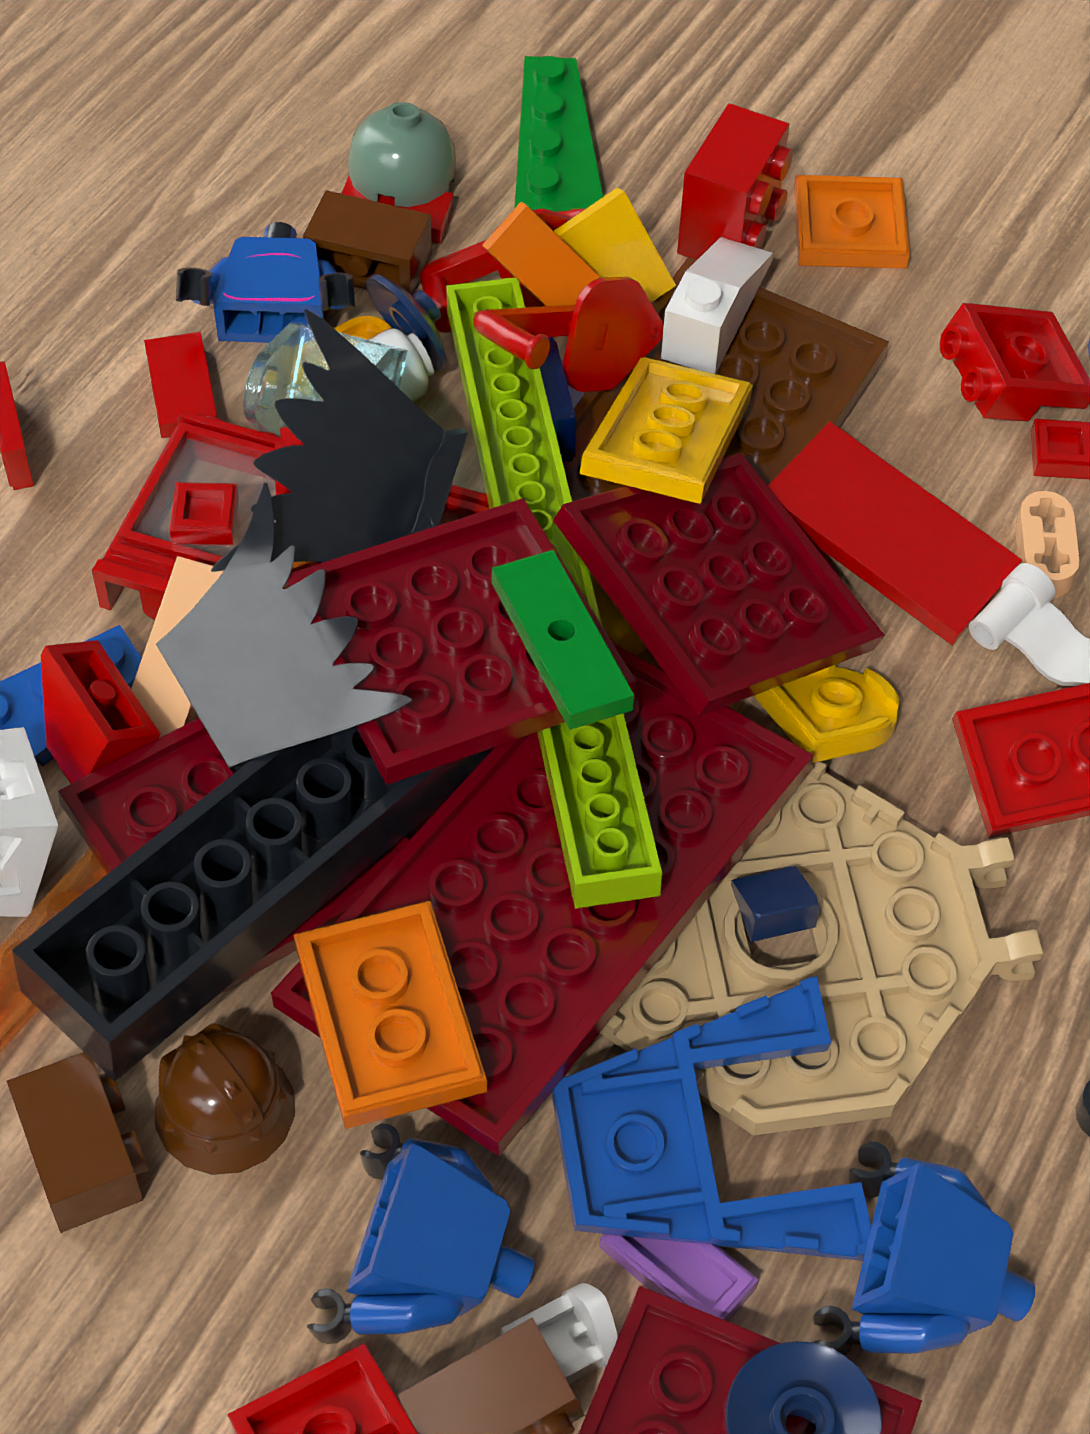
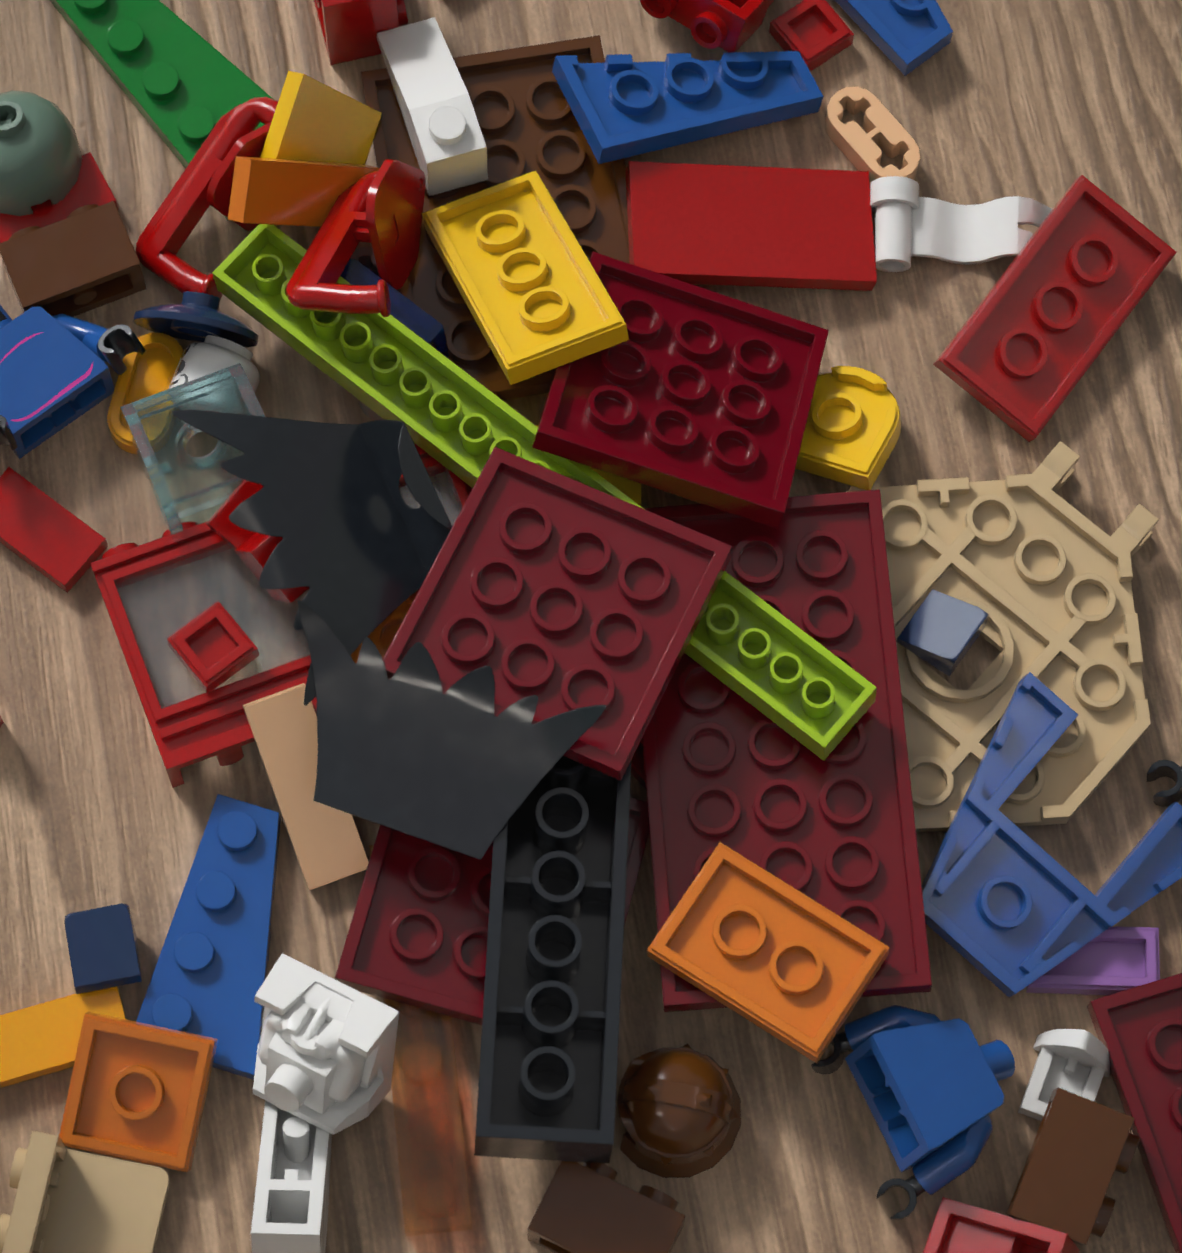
camera: 40 degrees left, 15 degrees up
(89, 709) = (294, 893): red slope -> none
(562, 639) = (623, 540): green tile -> none
(920, 419) = (659, 105): none -> blue wing

